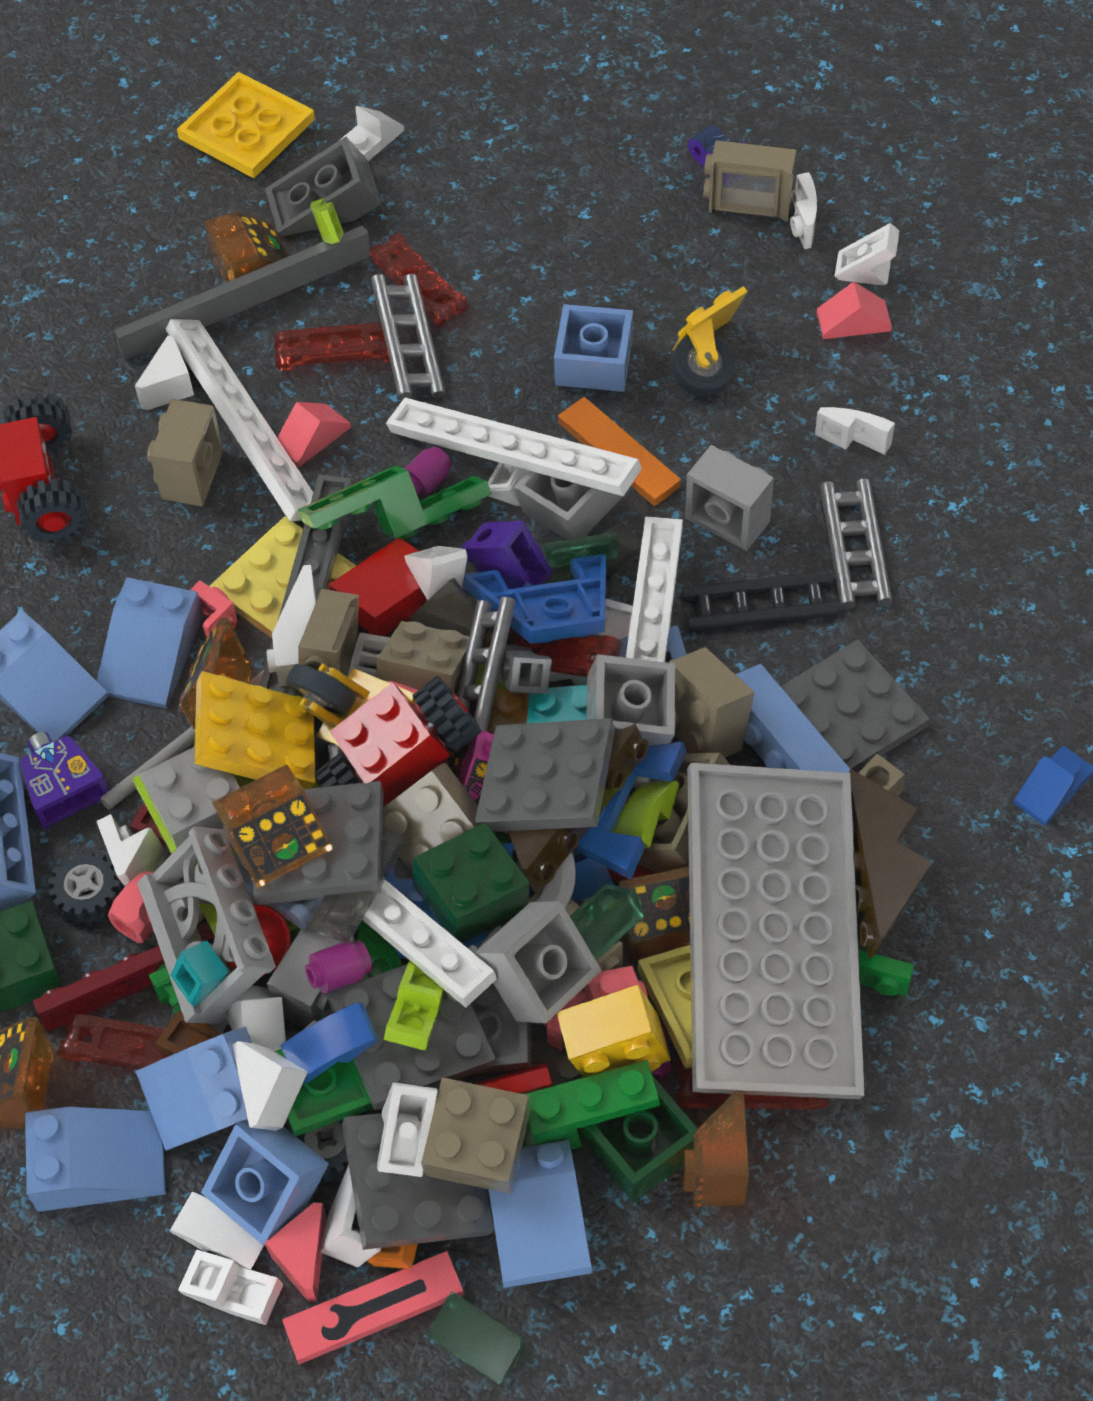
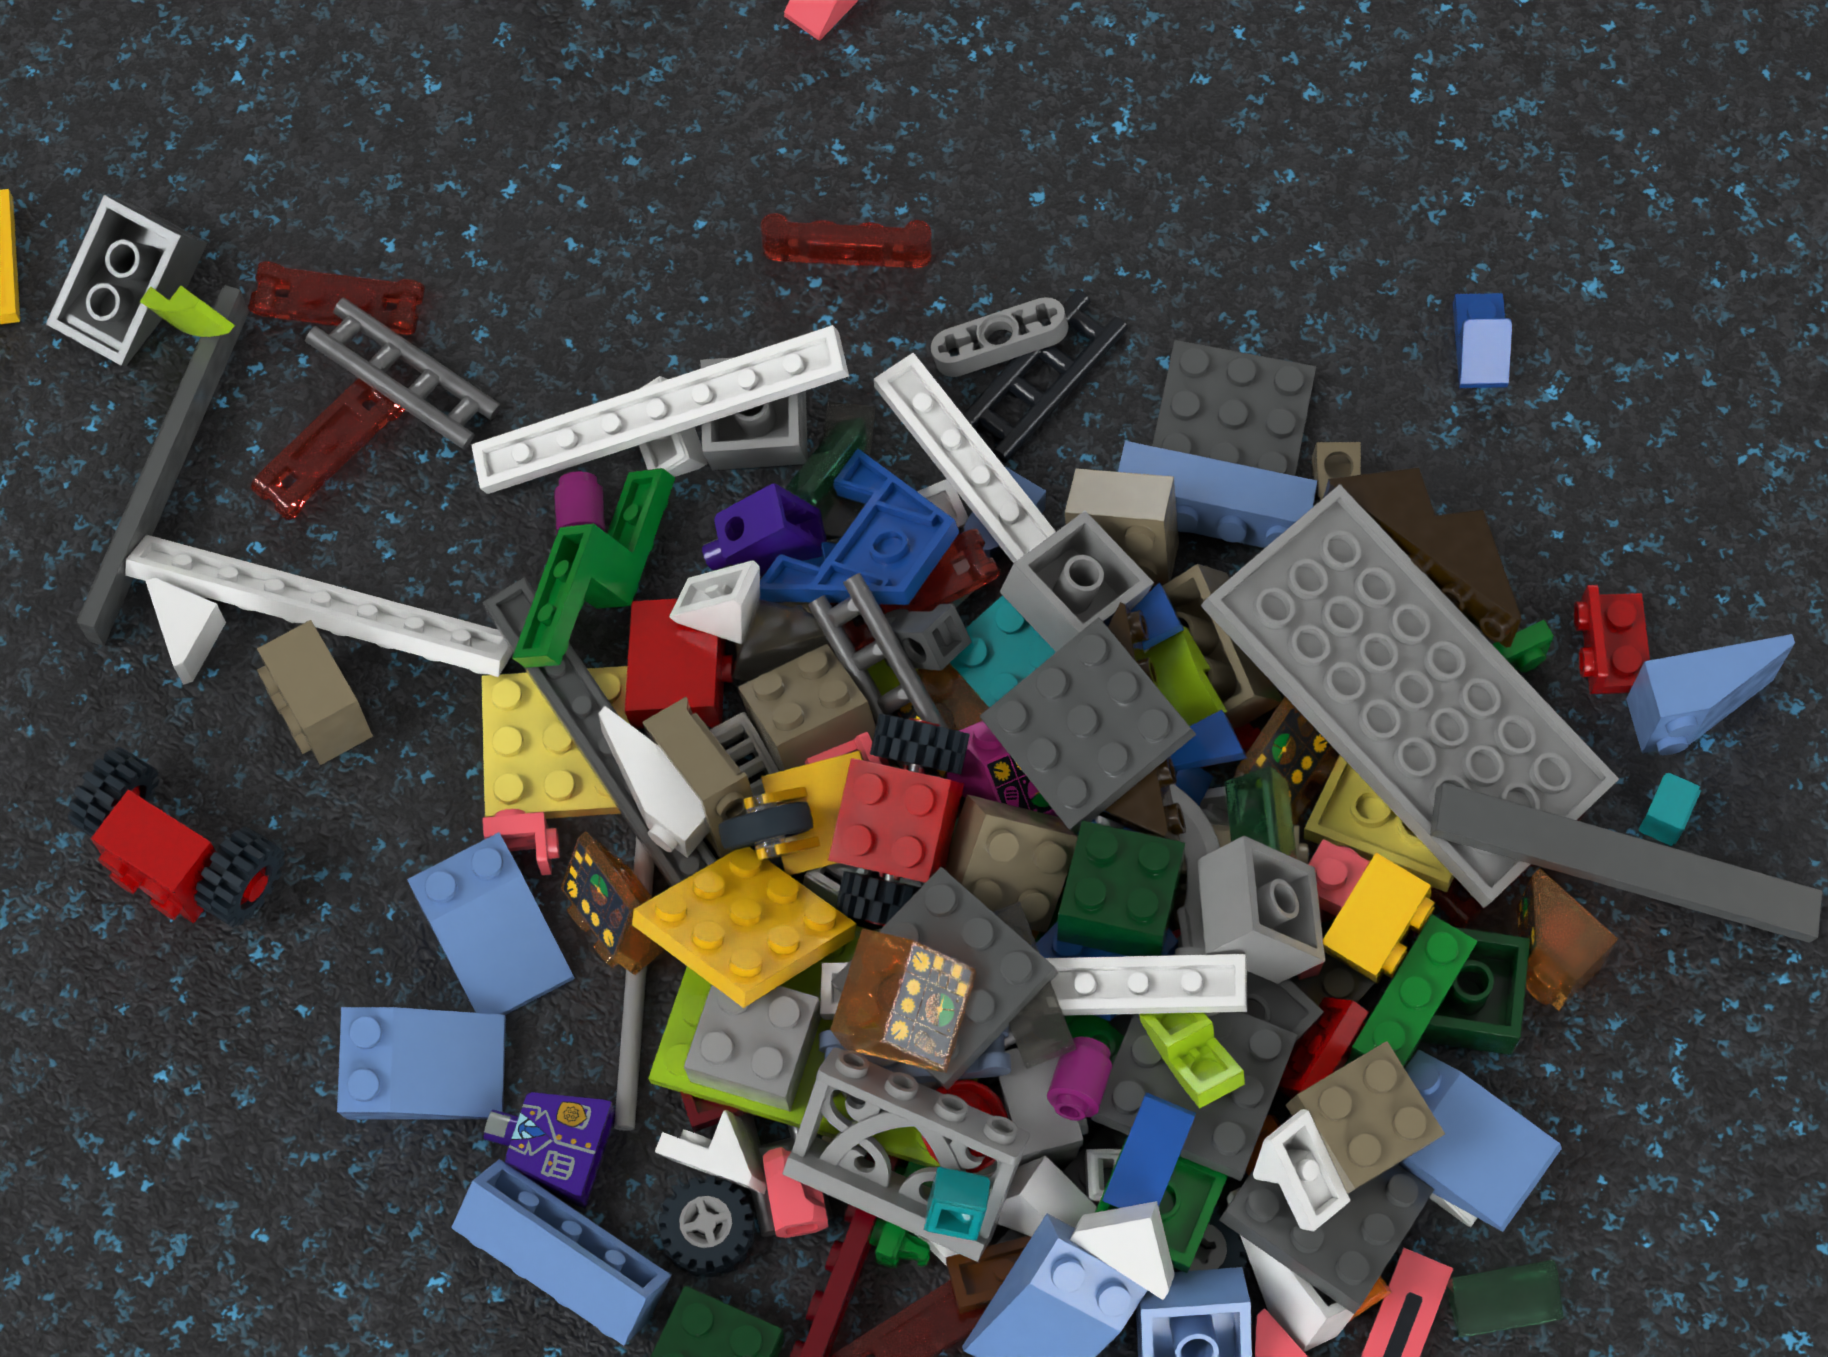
camera: 45 degrees left, 10 degrees up
(242, 244) = (110, 415): clear orange slope -> none
(310, 430) = (406, 560): coral slope -> none
(373, 131) = (99, 169): white slope -> none
(593, 347) = (616, 233): medium blue brick -> none
(597, 430) = (733, 323): orange tile -> none
(700, 359) = (734, 158): plate -> none
(702, 433) = (846, 244): none -> clear red plate
(729, 497) = (920, 289): light grey brick -> none
(777, 567) = (1008, 319): none -> light grey beam
(815, 1148) = (1626, 862): none -> dark grey tile
(842, 559) = (1073, 267): flat silver bar -> none
(845, 425) = (943, 123): white slope -> none
(884, 1145) = (1670, 809): none -> teal slope
(954, 1021) = (1612, 639): none -> red bracket
(977, 1091) = (1692, 692): none -> medium blue slope

